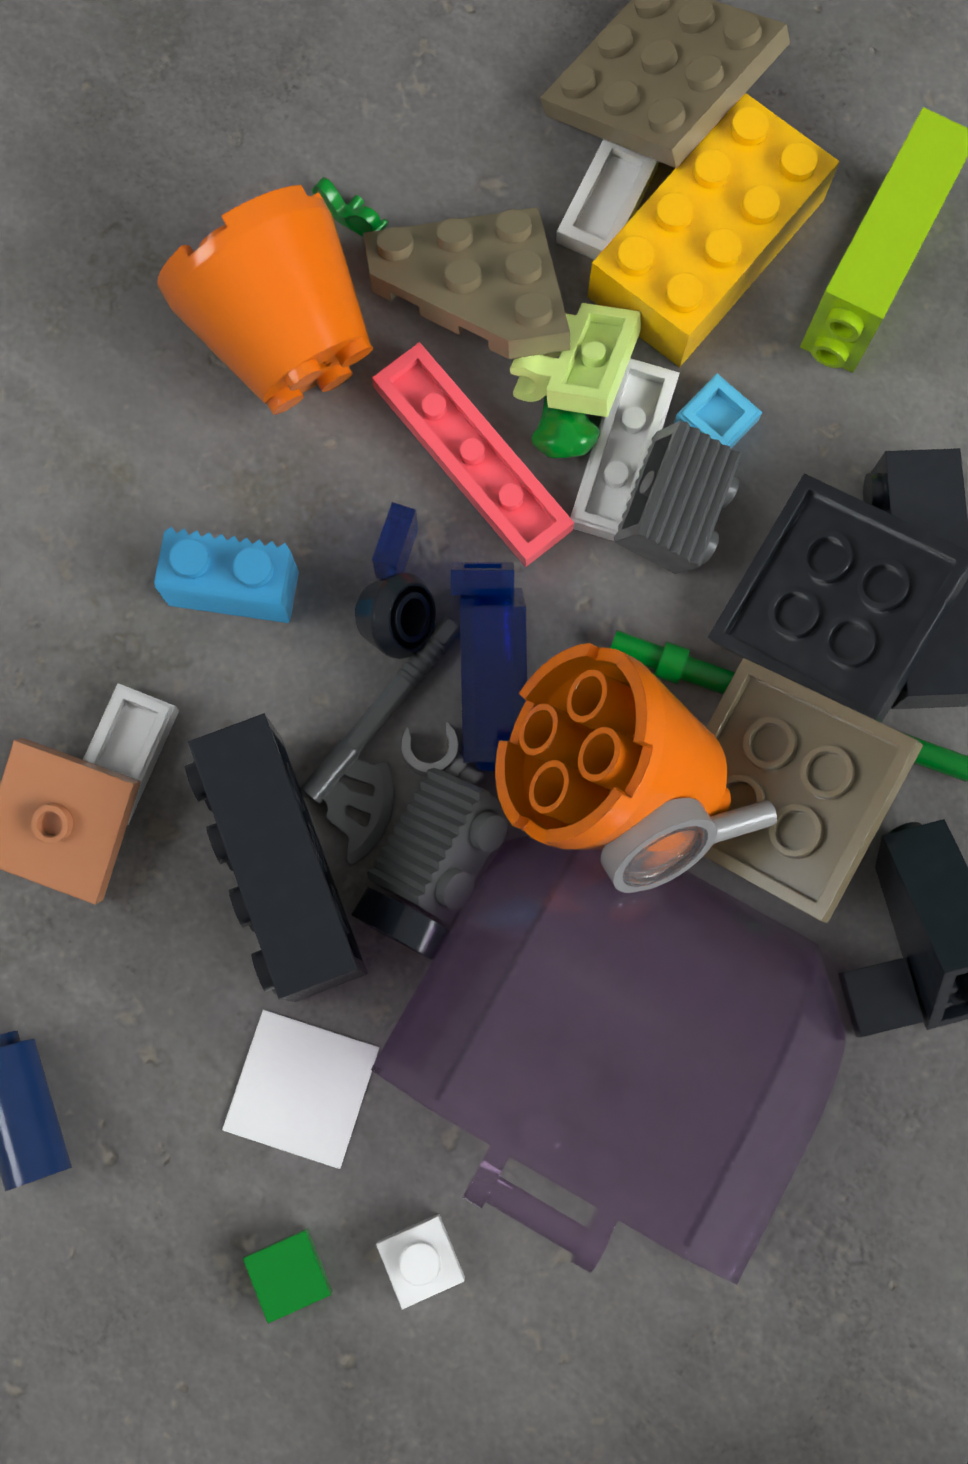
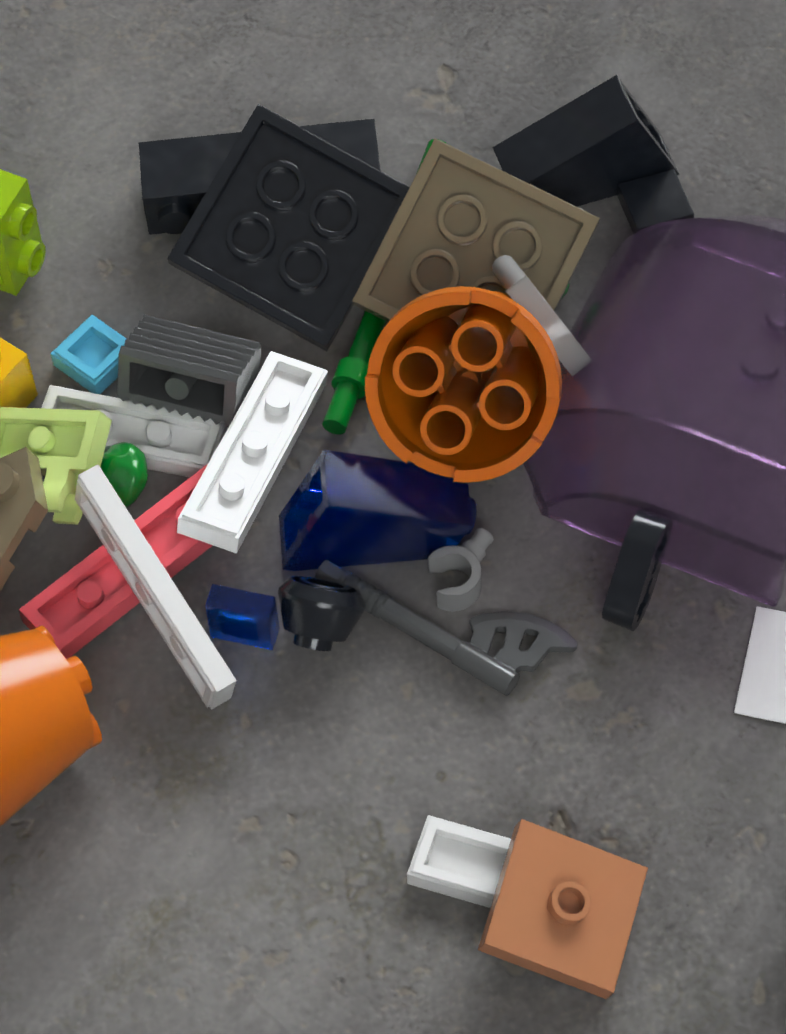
camera: 90 degrees left, 20 degrees down
(227, 575) = (285, 767): dark azure brick -> none
(276, 859) = (589, 673): black brick -> none
(416, 454) = (154, 588): none -> white tile
(440, 845) = (553, 542): dark grey brick -> none
(482, 578) = (277, 535): clear blue tile -> none
(577, 557) = (252, 452): none -> white tile

